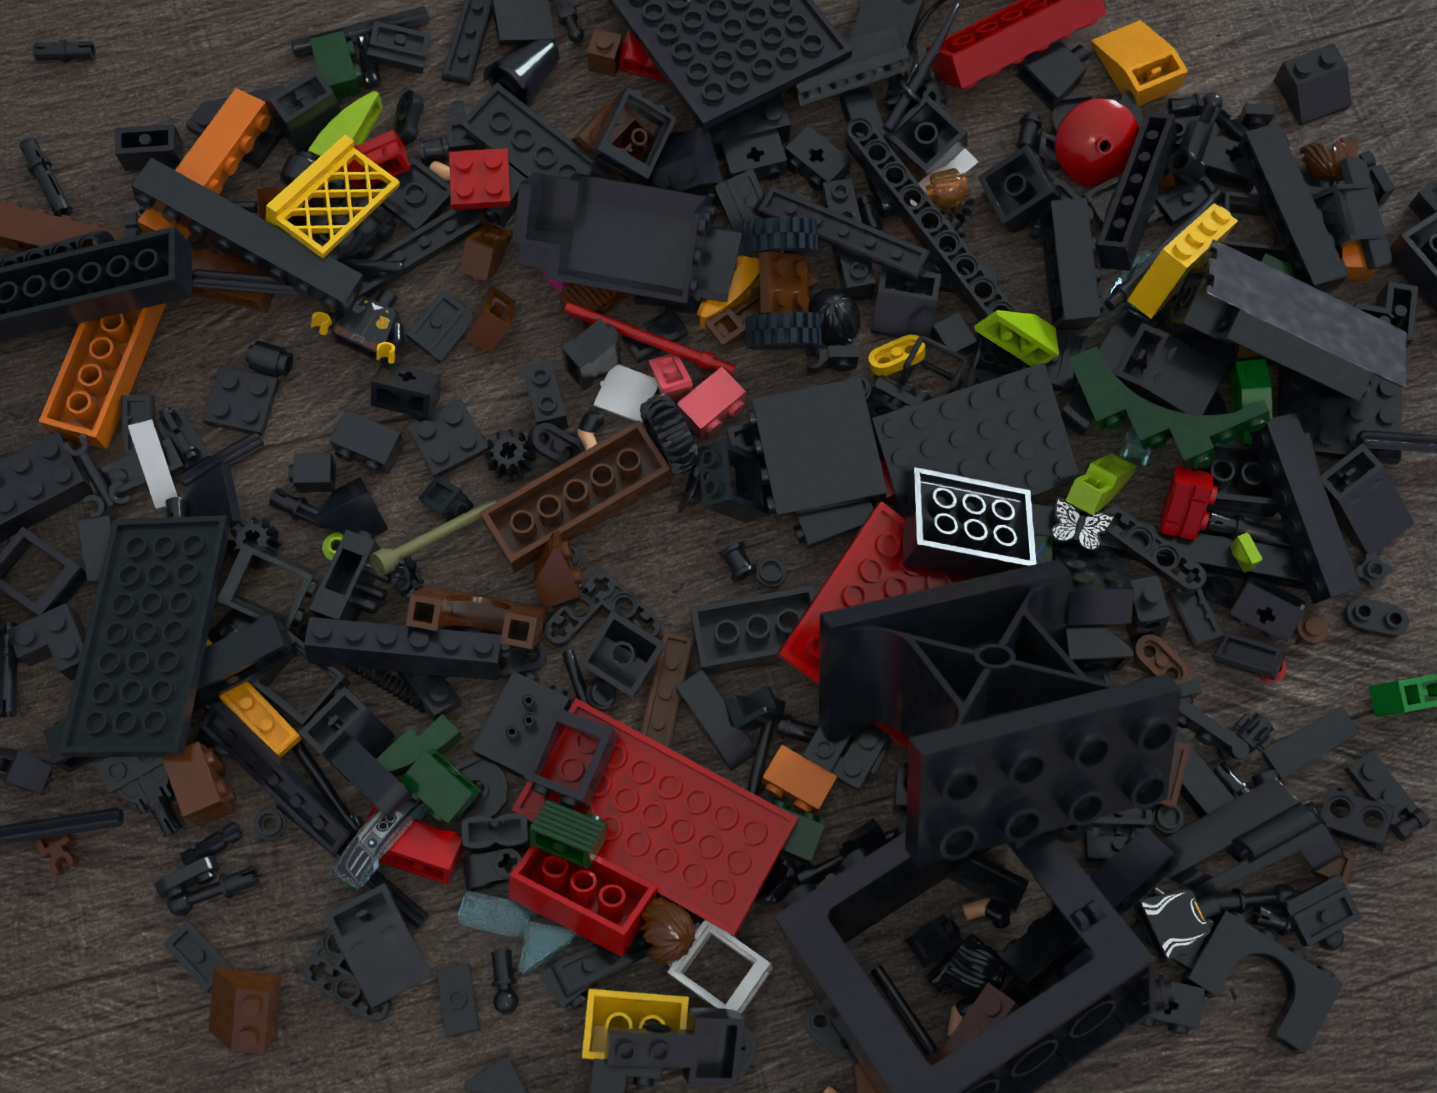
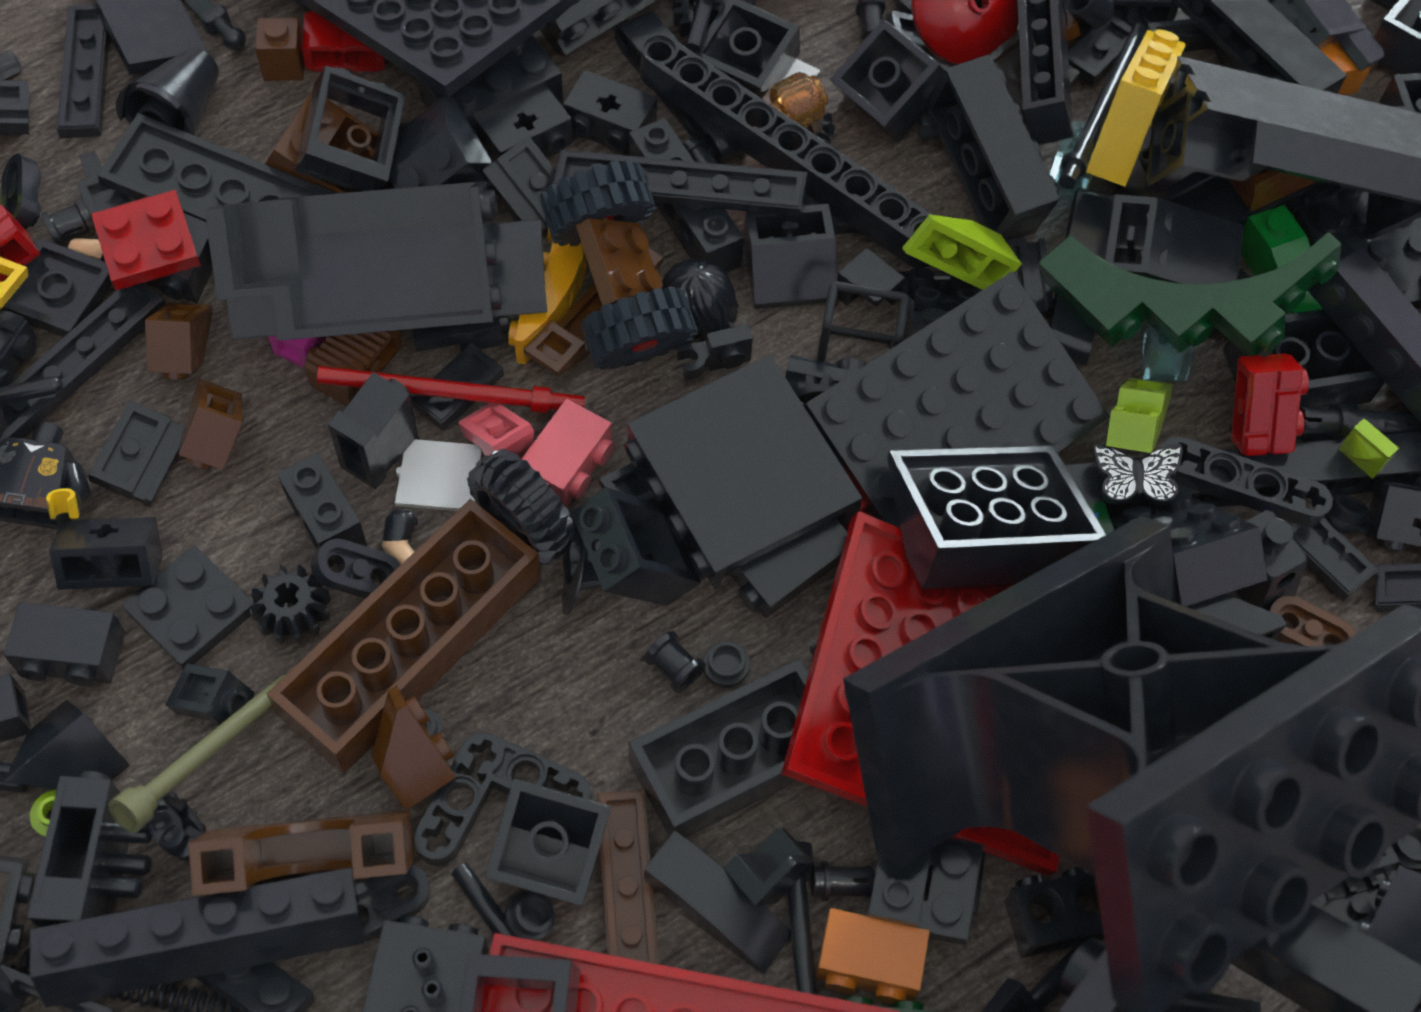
camera: 20 degrees left, 10 degrees down
(892, 356) = (798, 327): yellow plate -> none

